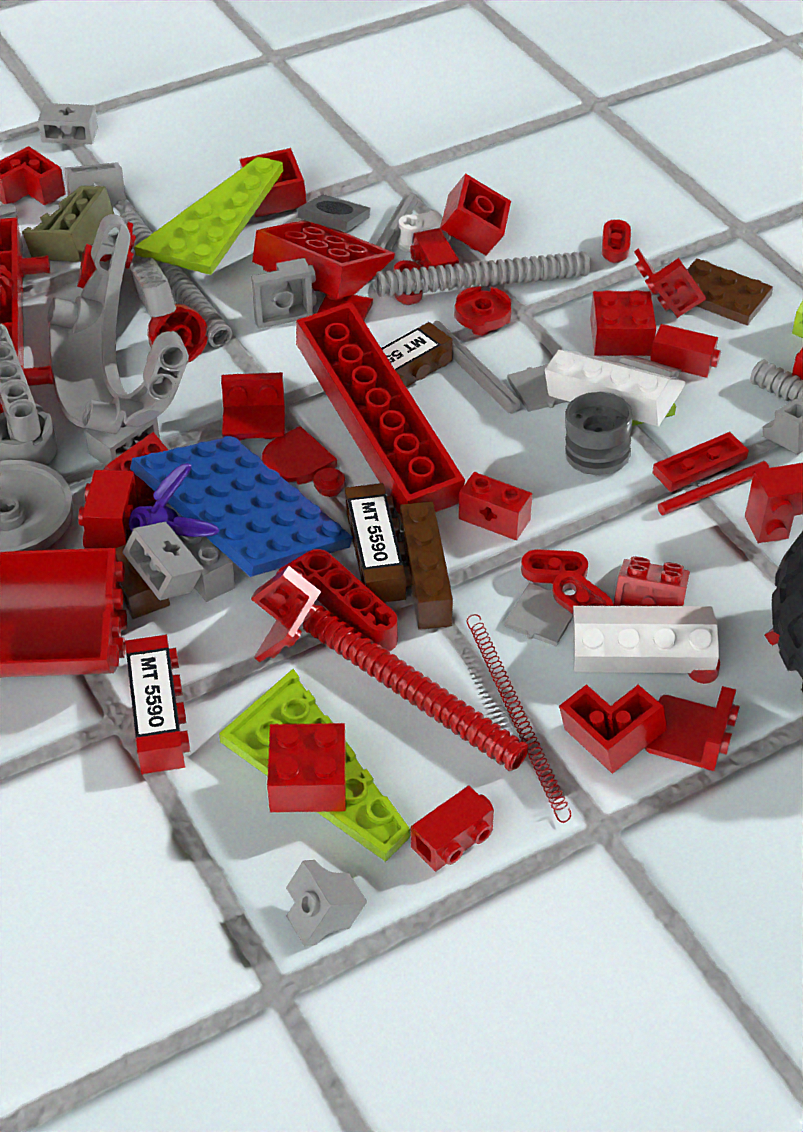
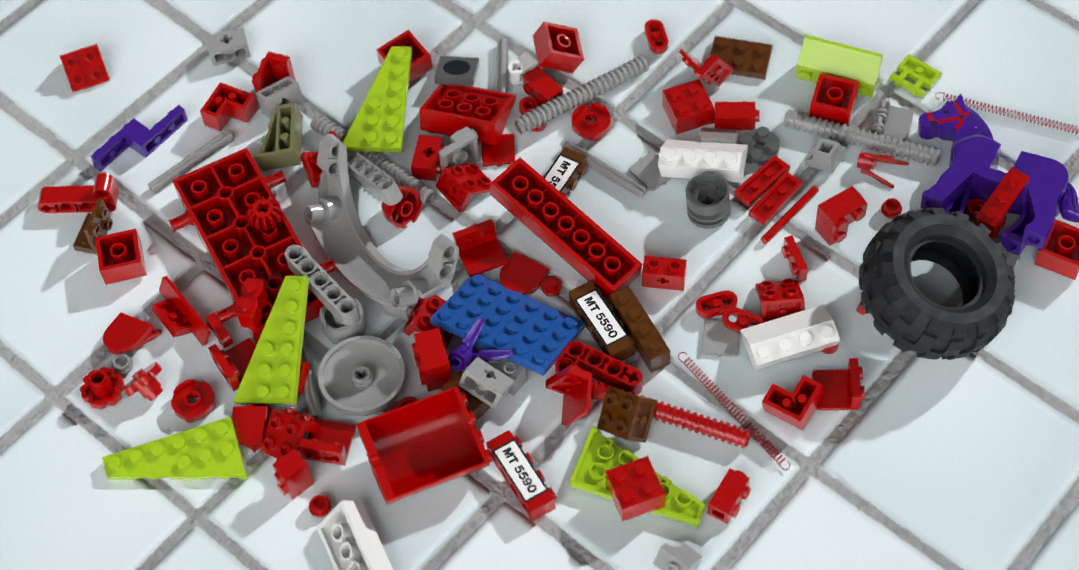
camera: 15 degrees left, 10 degrees up
(99, 147) = (271, 70): none -> red bracket
(234, 295) = (426, 158): none -> red brick
(265, 328) = (462, 182): none -> red bracket
(350, 667) = (626, 415): none -> reddish brown bracket
(687, 434) = (761, 181): none -> red plate
(697, 549) = (796, 262): none -> red plate
(712, 385) = (763, 137): none -> dark grey plate

